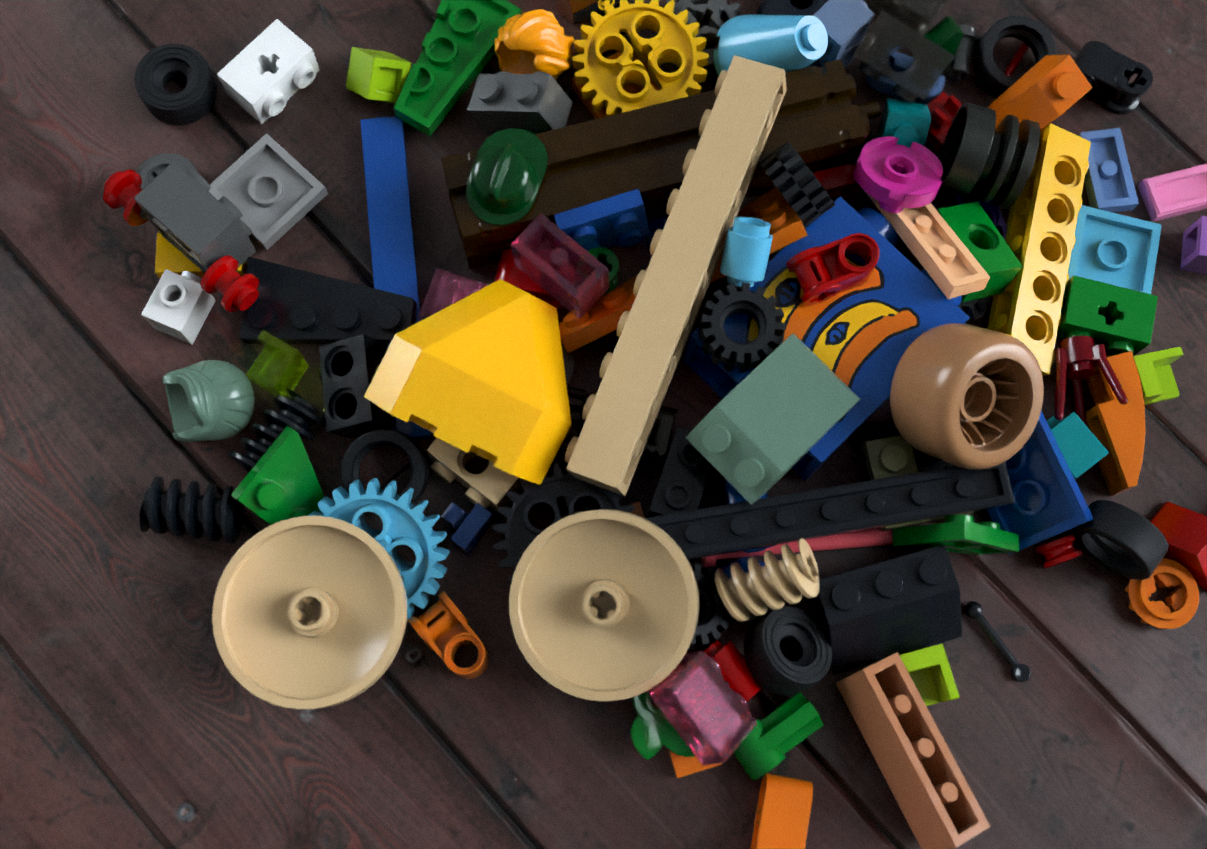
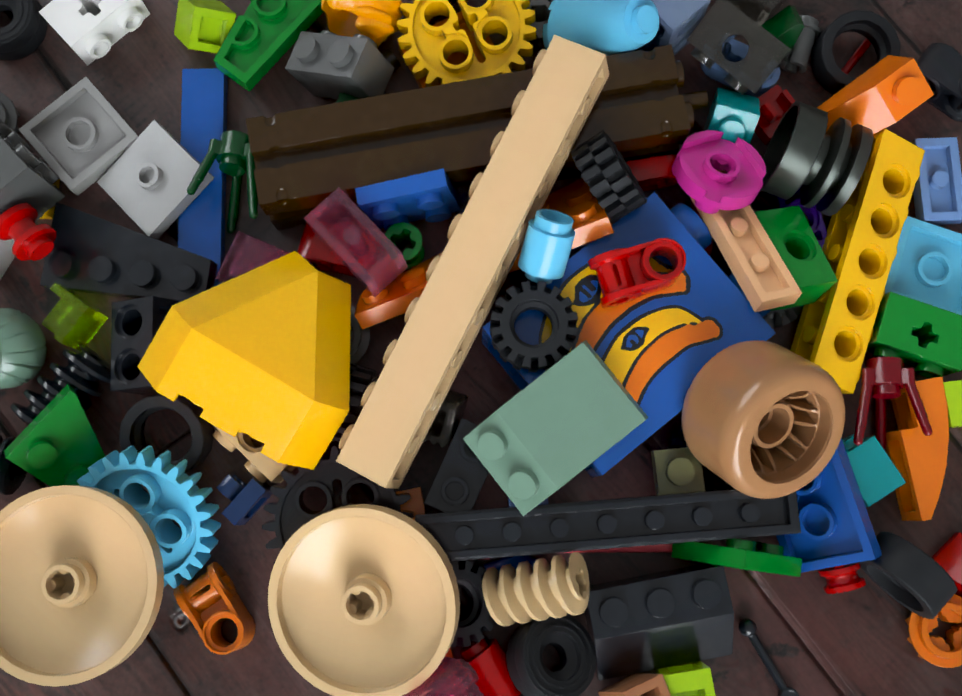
camera: 10 degrees right, 5 degrees up
(346, 227) = (153, 180): none -> light grey plate
(424, 196) = (234, 159): none -> dark green plant
(506, 176) = (309, 143): dark green piece -> none

